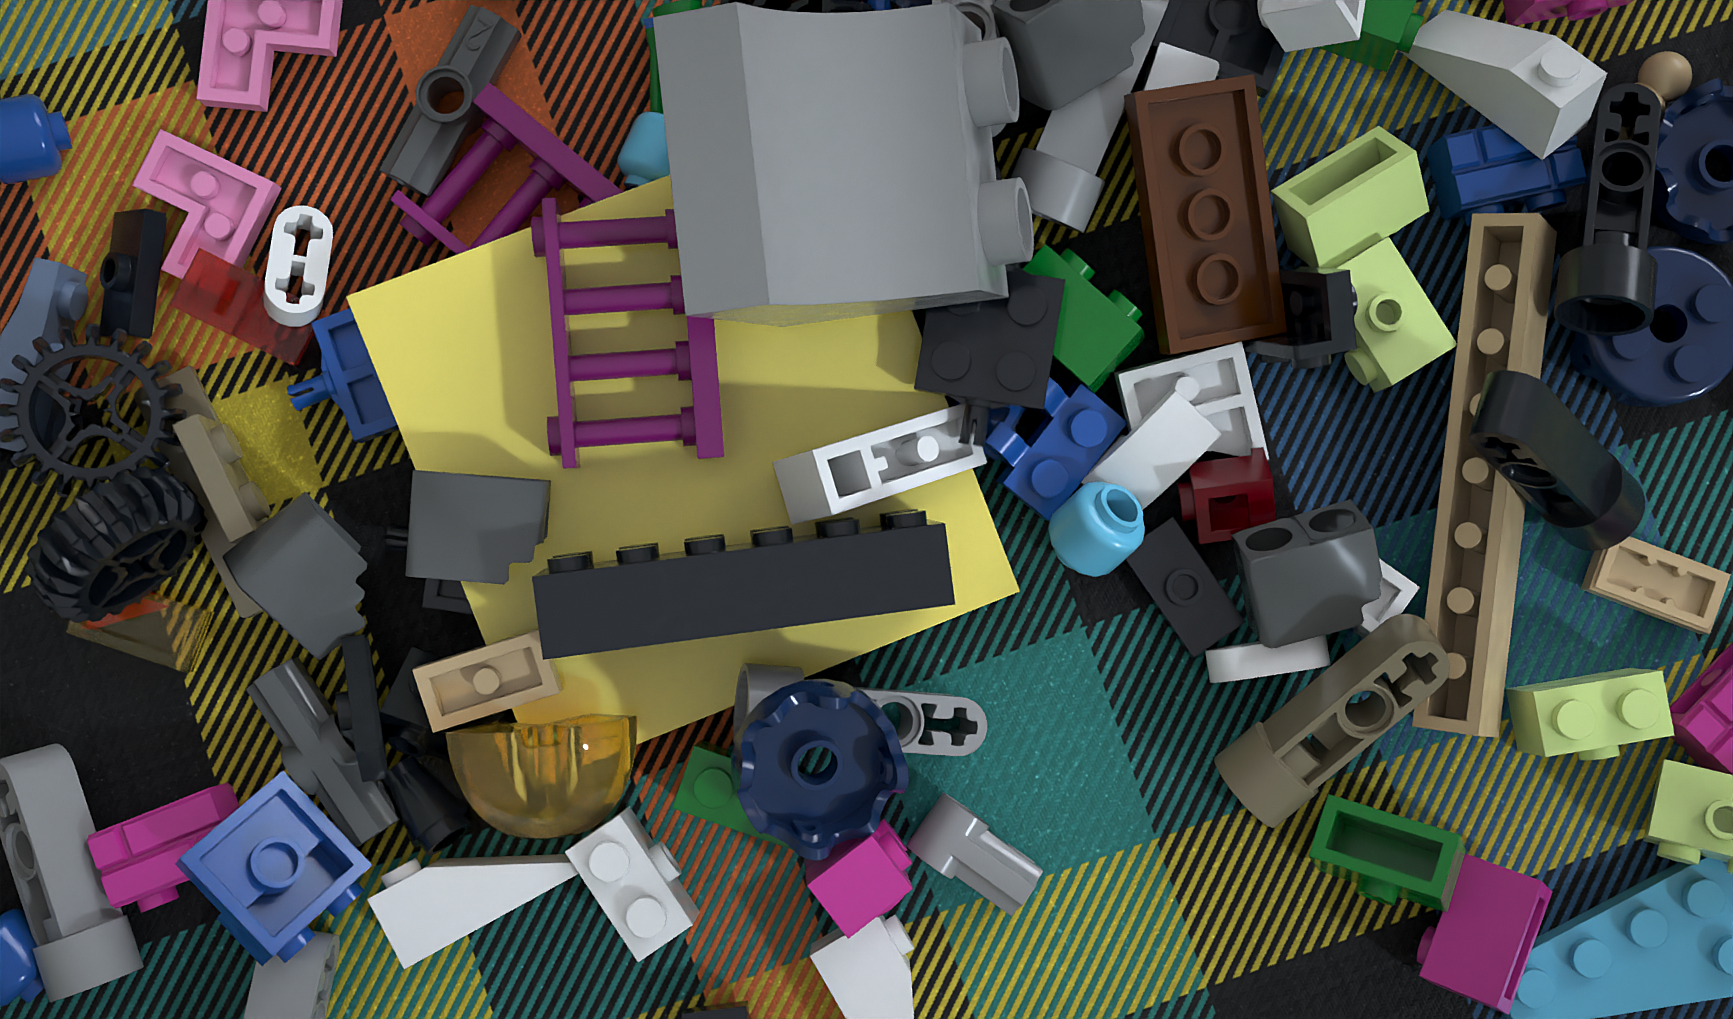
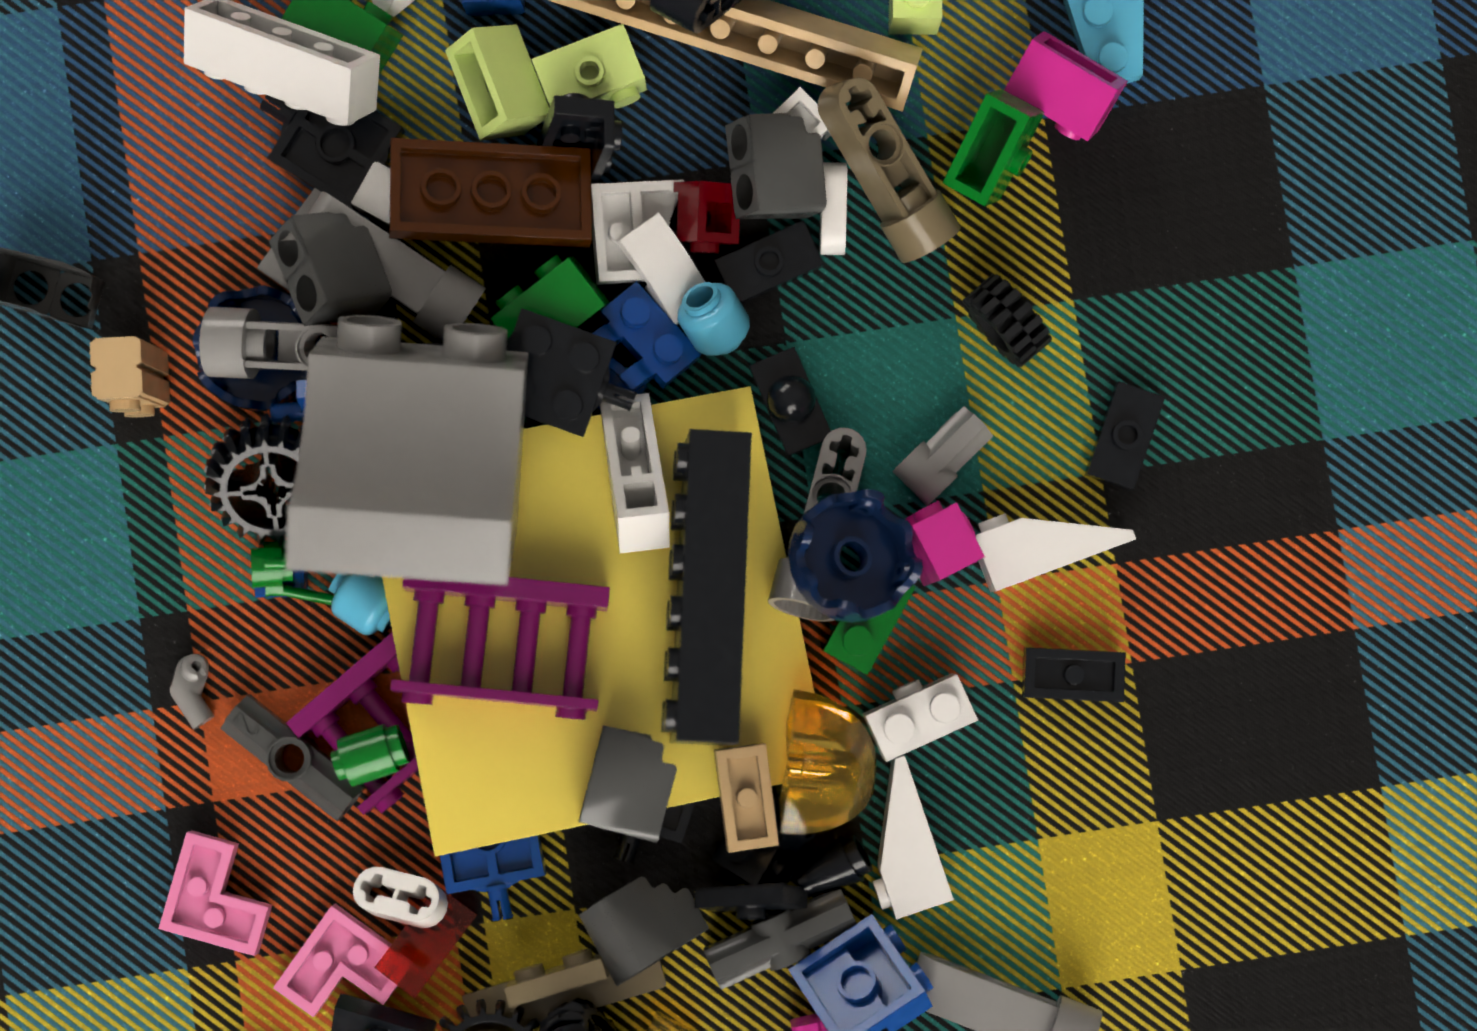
camera: 75 degrees left, 0 degrees up
(465, 193) = (370, 754): none -> green brick
(1009, 646) = (790, 401): none -> black tile
(1164, 909) = (1007, 320): none -> black tyre

